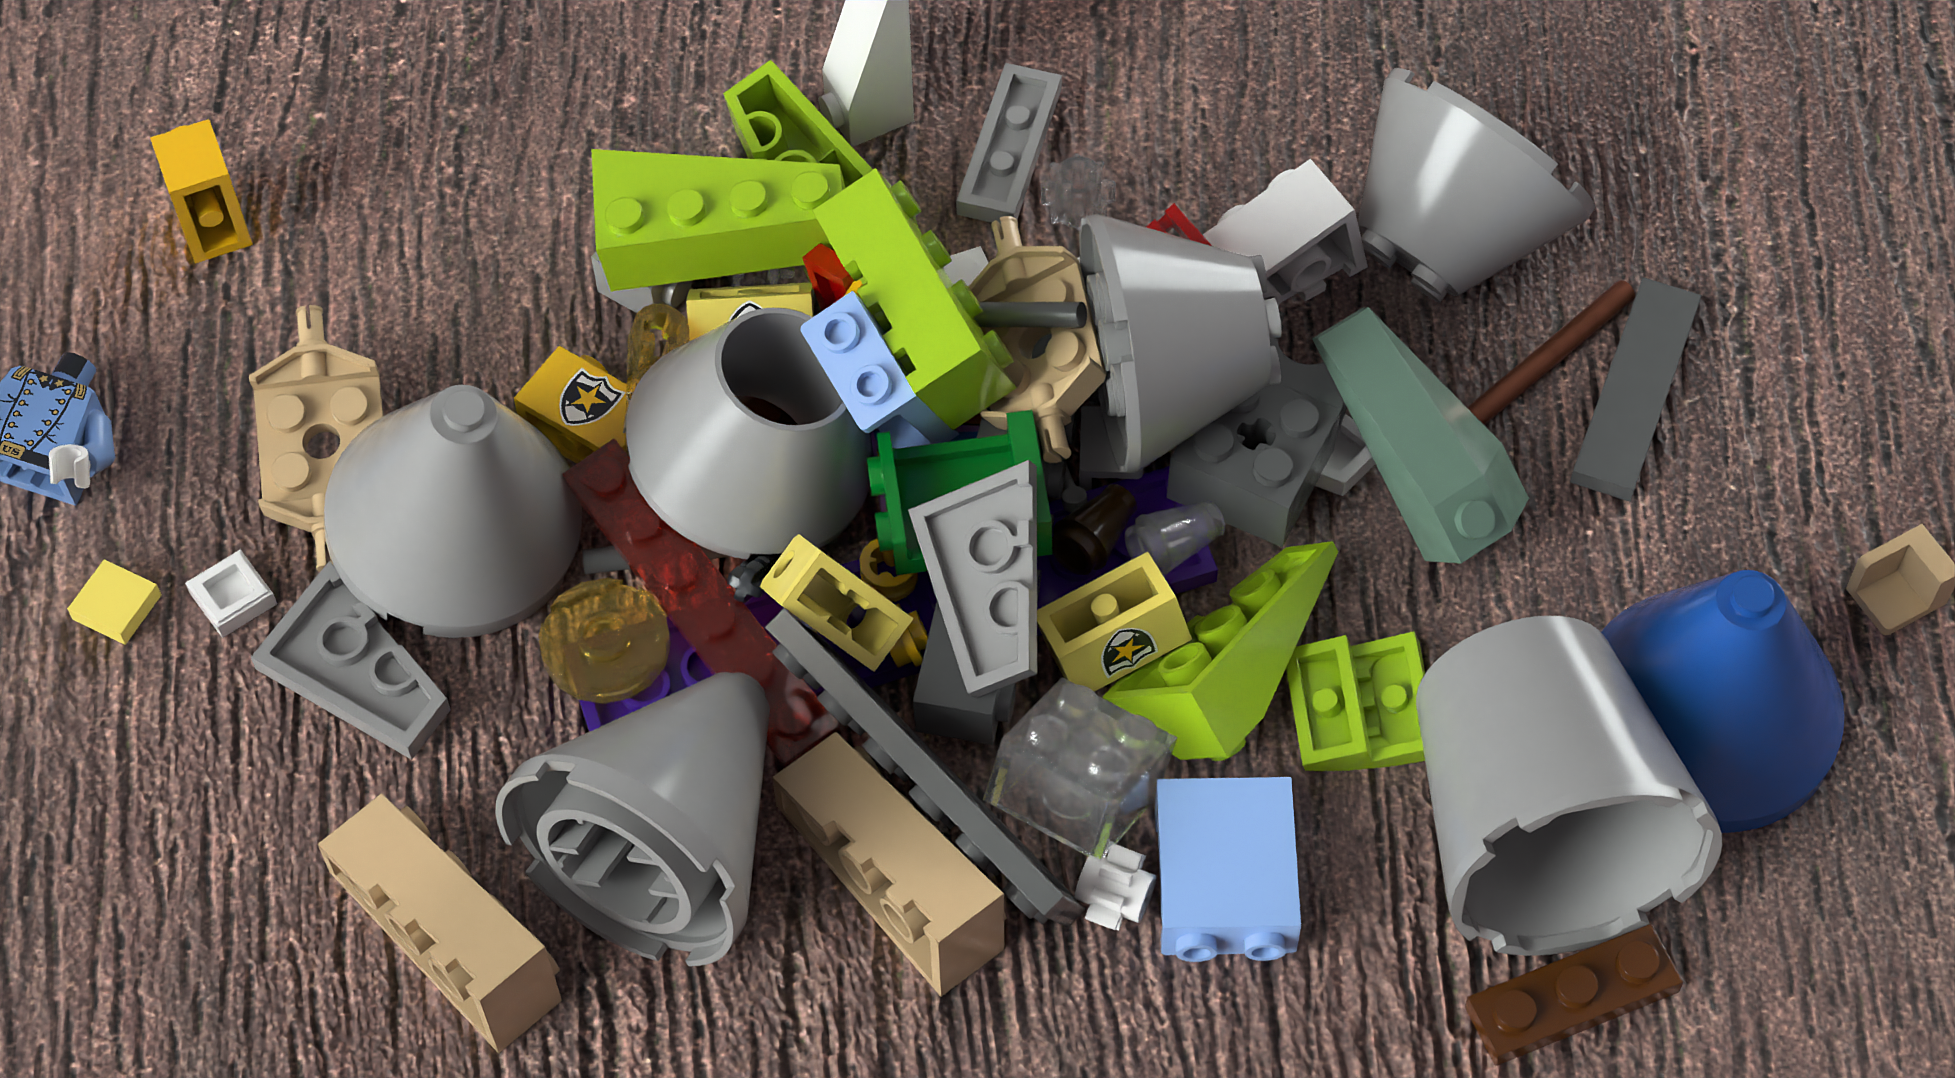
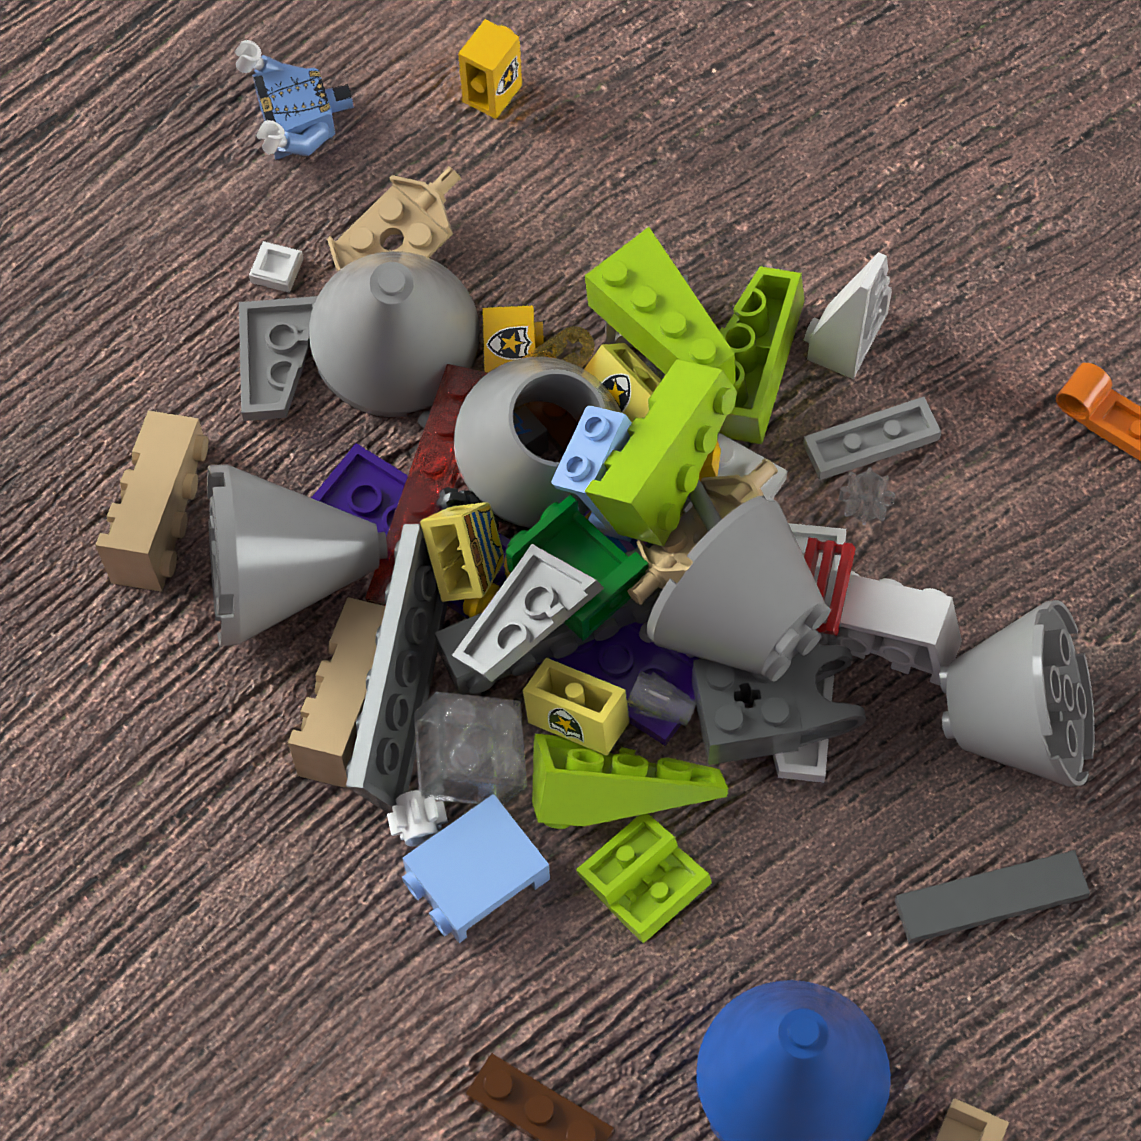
camera: 55 degrees right, 5 degrees up
(114, 601) = (229, 218): light yellow tile -> none
(604, 640) = (371, 458): clear yellow tile -> none
(1091, 532) = (630, 654): dark brown cone -> none
(1428, 446) = (829, 808): sand green wedge -> none
(1552, 351) = (969, 830): copper bar -> none
(1555, 790) = (633, 1008): light grey cone -> none

